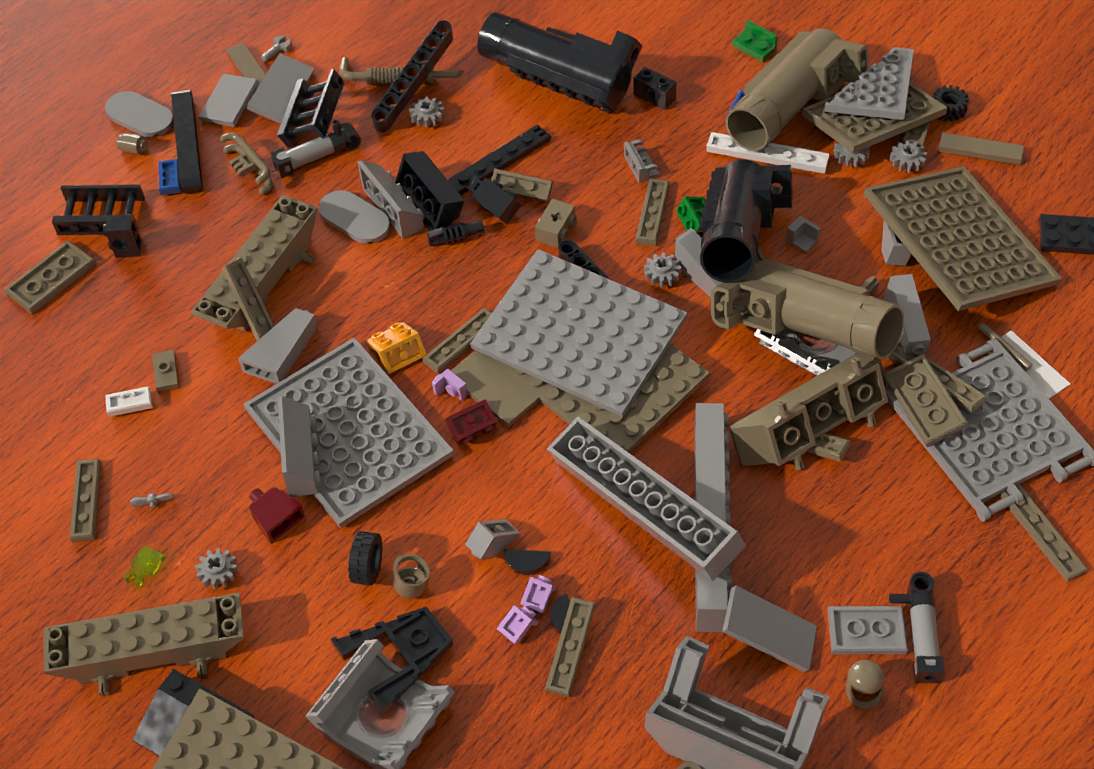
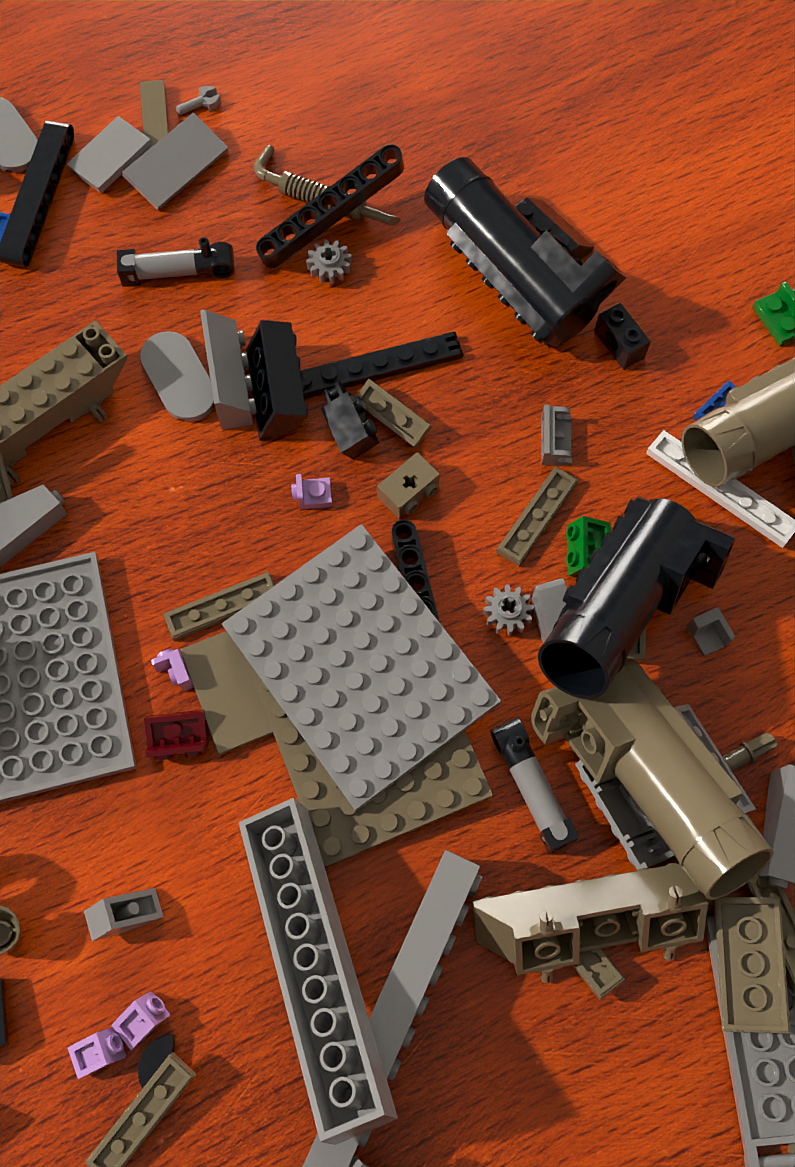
camera: 20 degrees right, 15 degrees up
(247, 161) = (89, 252): dark tan piece -> none
(300, 102) = (182, 196): black fence -> none
(397, 346) = (139, 584): light orange bracket -> none
(444, 235) = (283, 449): black hinge -> none
(489, 252) = (312, 492): none -> lavender bracket
(526, 561) = (149, 963): black tile -> none
(760, 379) = (515, 747): none -> piece

